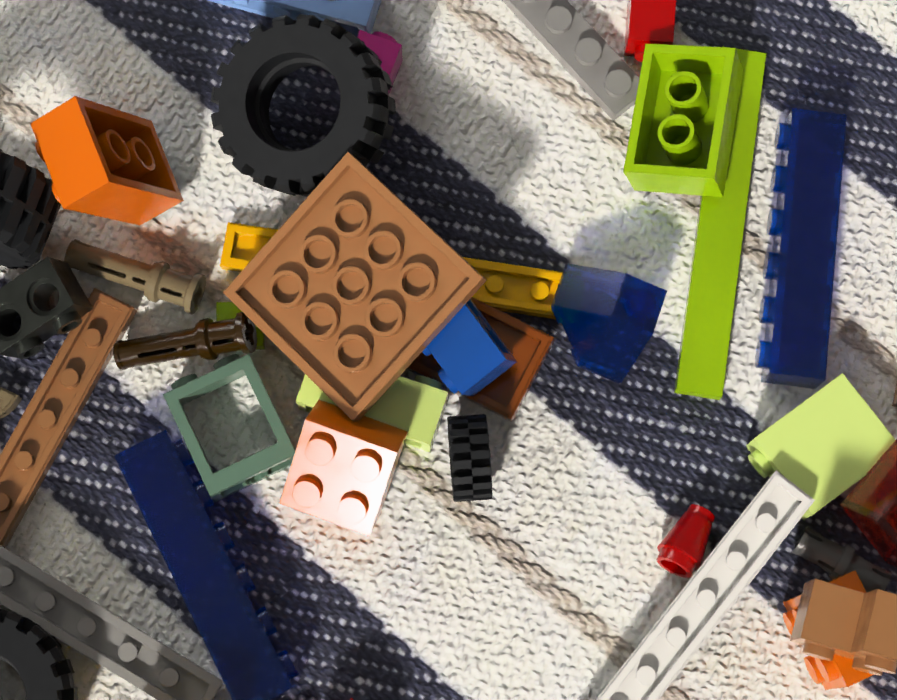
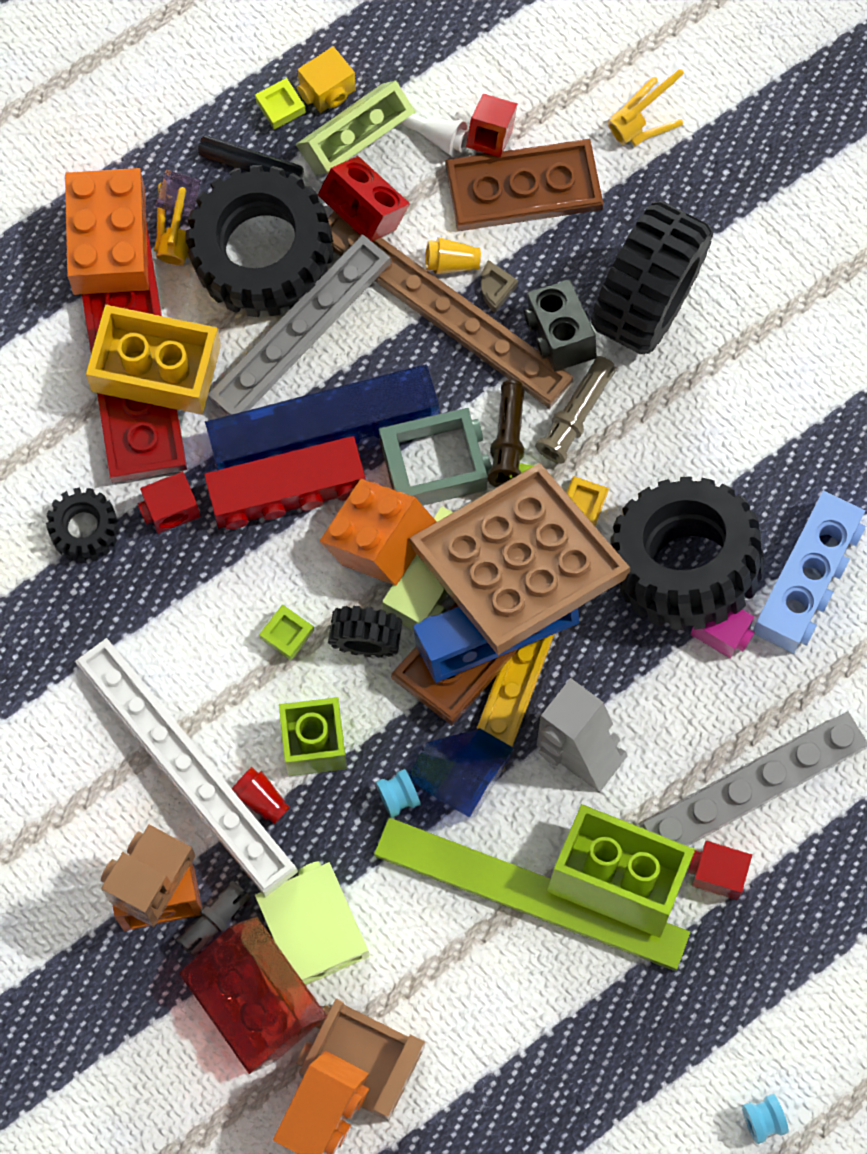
camera: 105 degrees right, 5 degrees down
(105, 162) = (664, 390): orange brick -> none
(294, 598) = (284, 483): none -> red brick
(483, 555) = (286, 632): none -> lime plate
(541, 196) = (578, 736): none -> light grey wedge
(608, 491) = (312, 736): none -> lime head
(647, 384) = (397, 793): none -> medium azure wheel
(803, 249) = (490, 954): clear blue brick -> none

